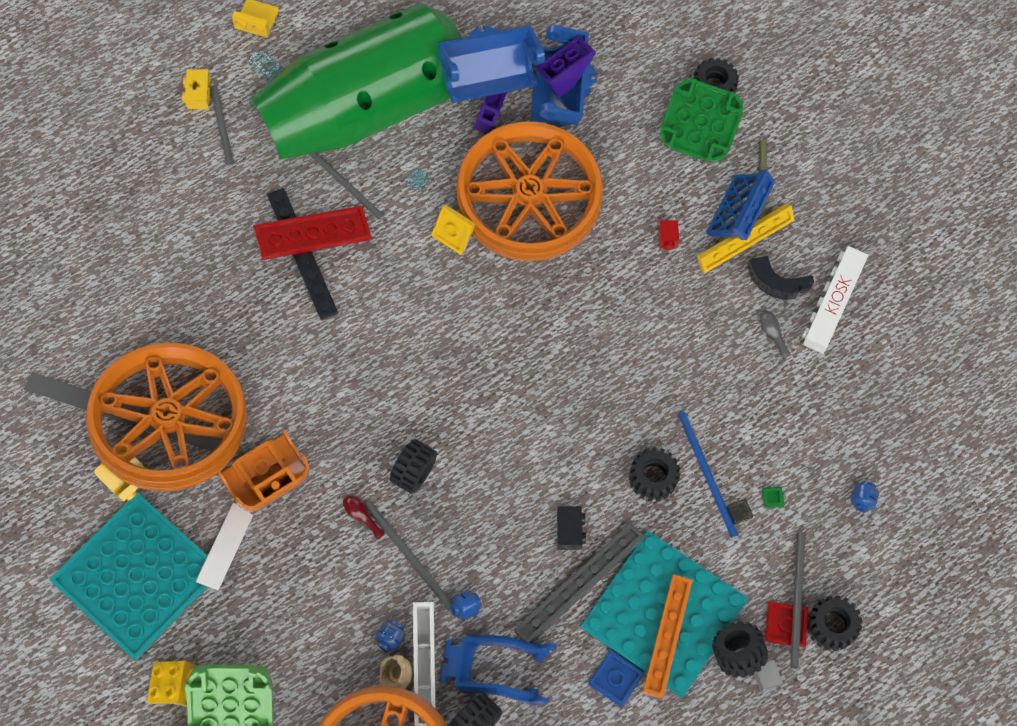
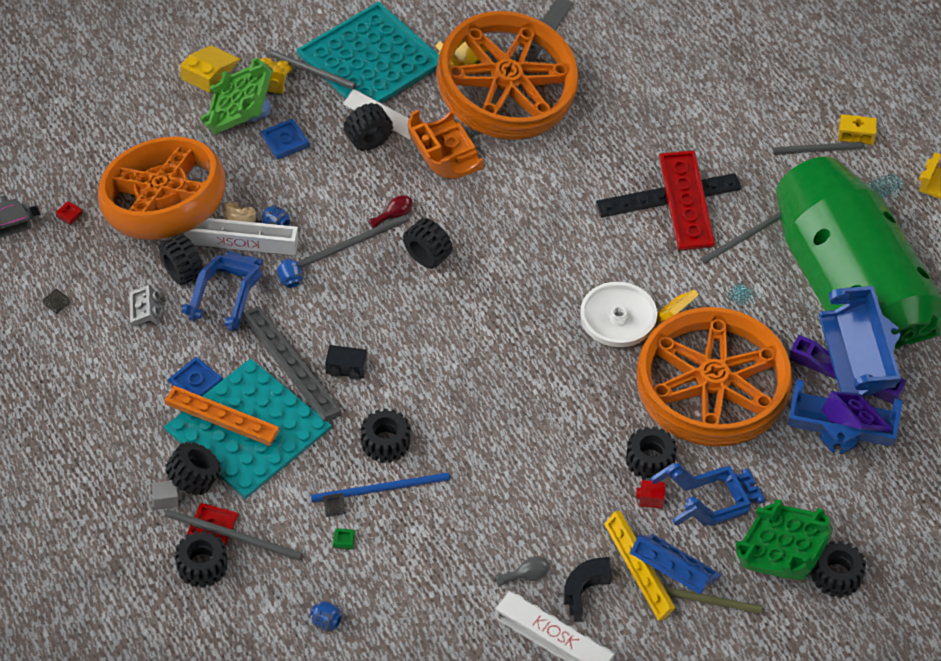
camera: 100 degrees right, 15 degrees down
(165, 635) = (312, 69): none -> dark grey piece
(256, 553) = (368, 126): none -> black tyre
(272, 648) = (284, 138): none -> blue plate
(469, 279) = (618, 314): none -> white dish
(620, 249) = (650, 440): none -> black tyre
(647, 163) = (737, 484): none -> blue piece

